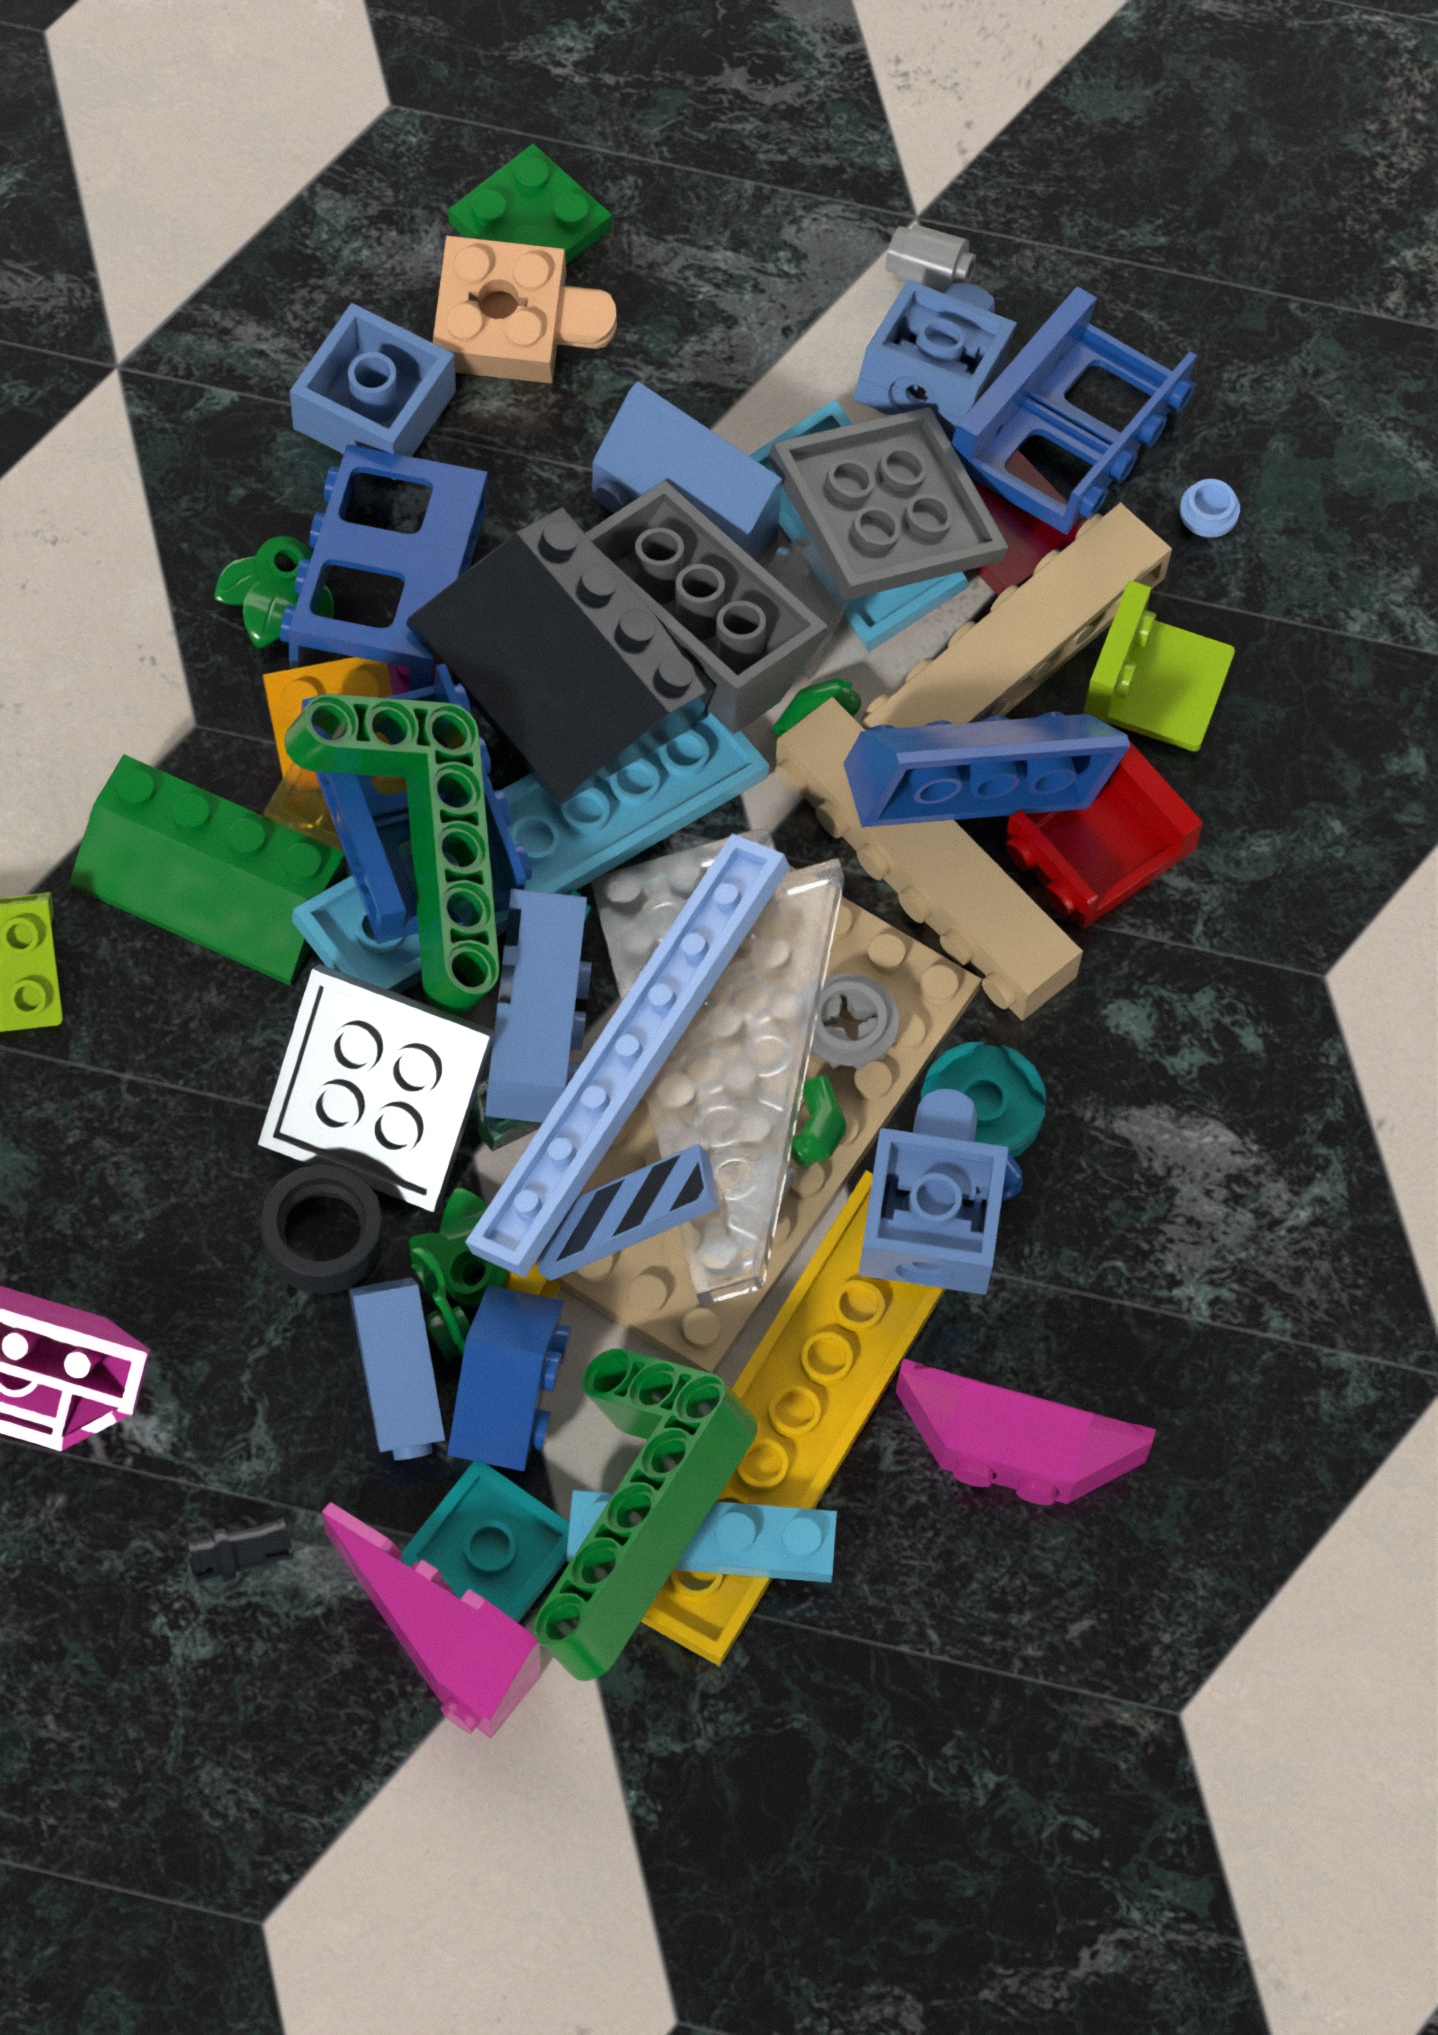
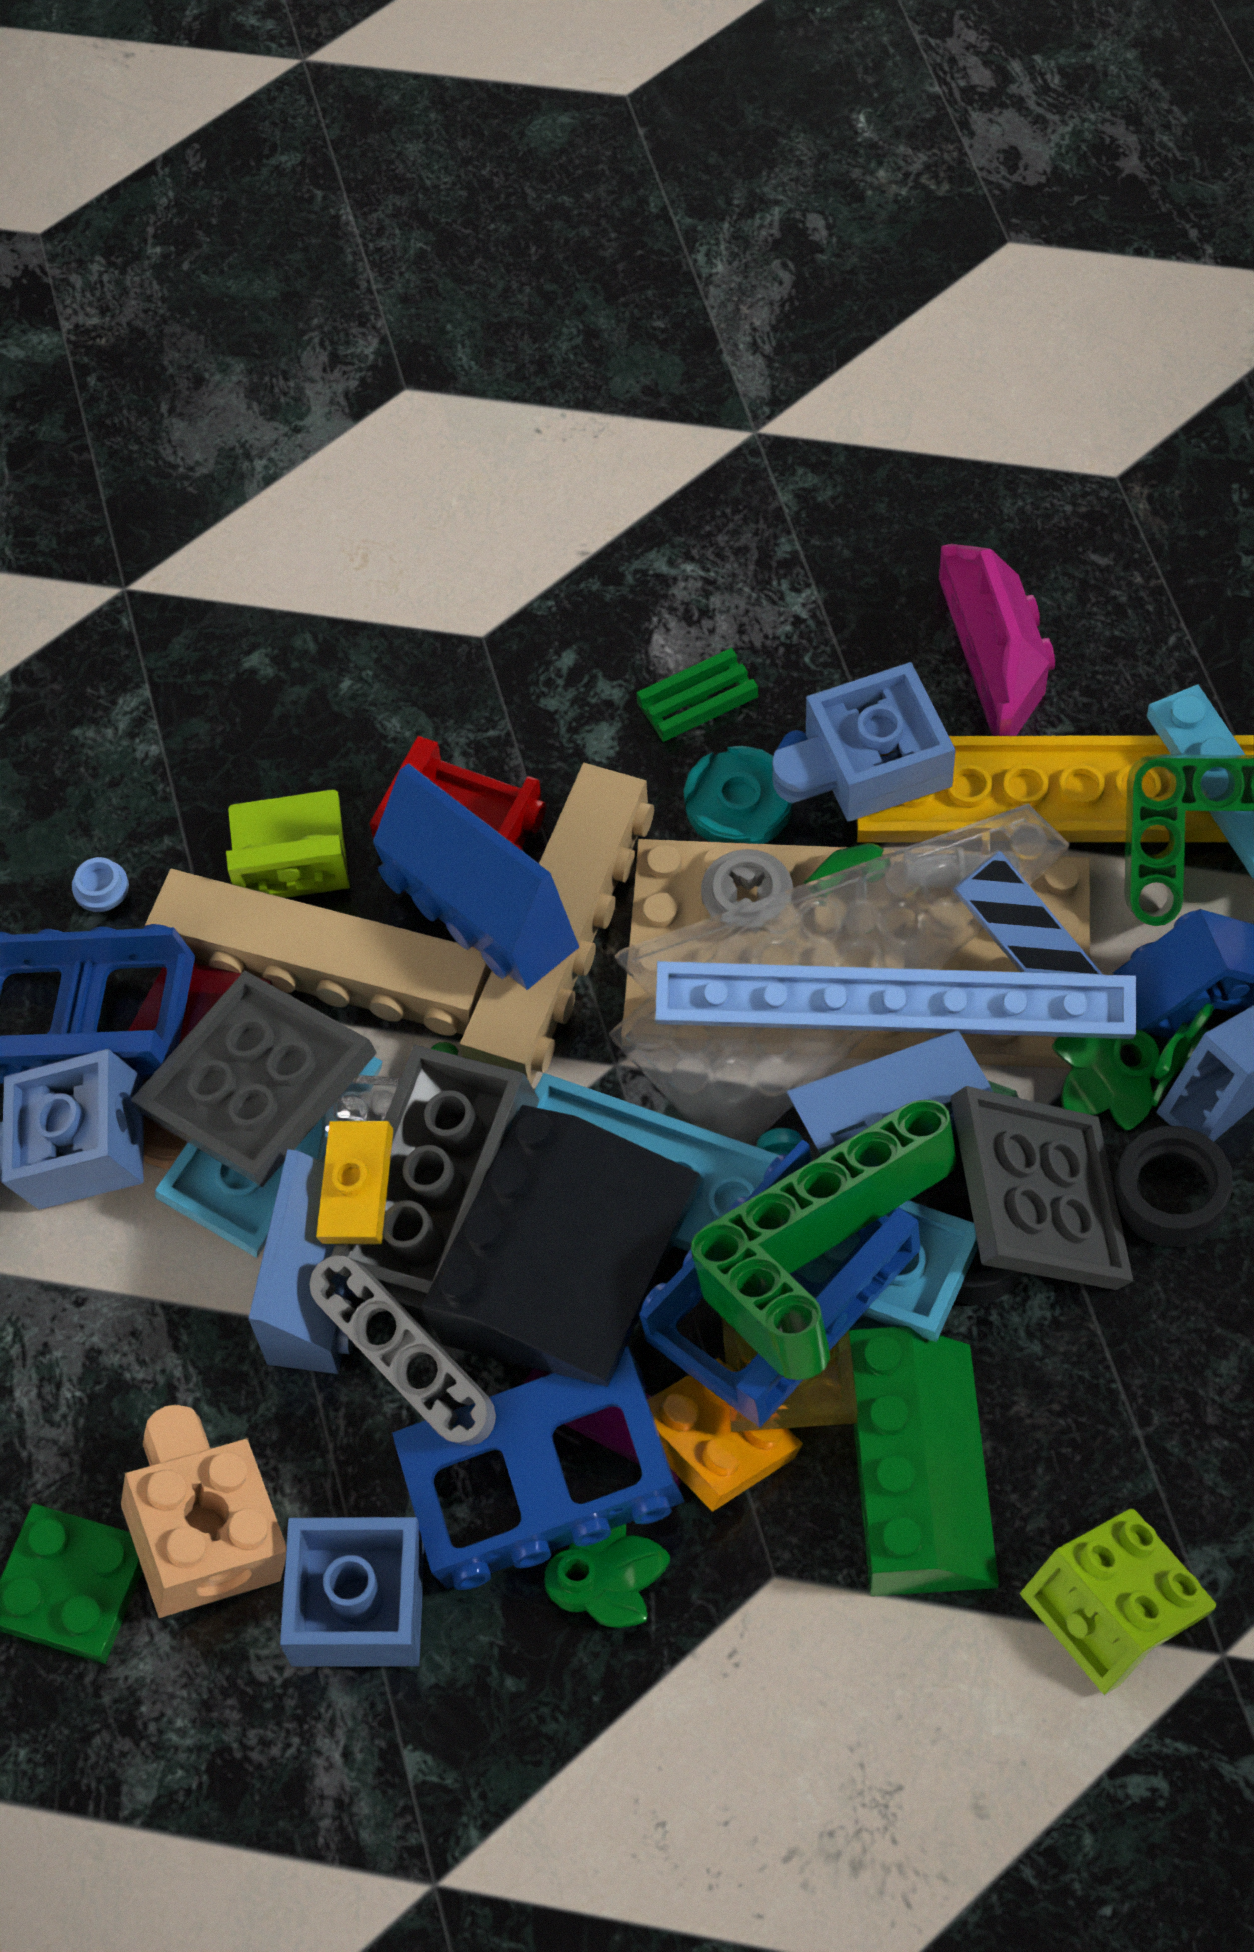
camera: 110 degrees left, 5 degrees down
(542, 486) = (398, 1353): none -> light grey beam
(720, 521) = (355, 1182): none -> yellow plate
(1128, 1080) = (692, 688): none -> green tile

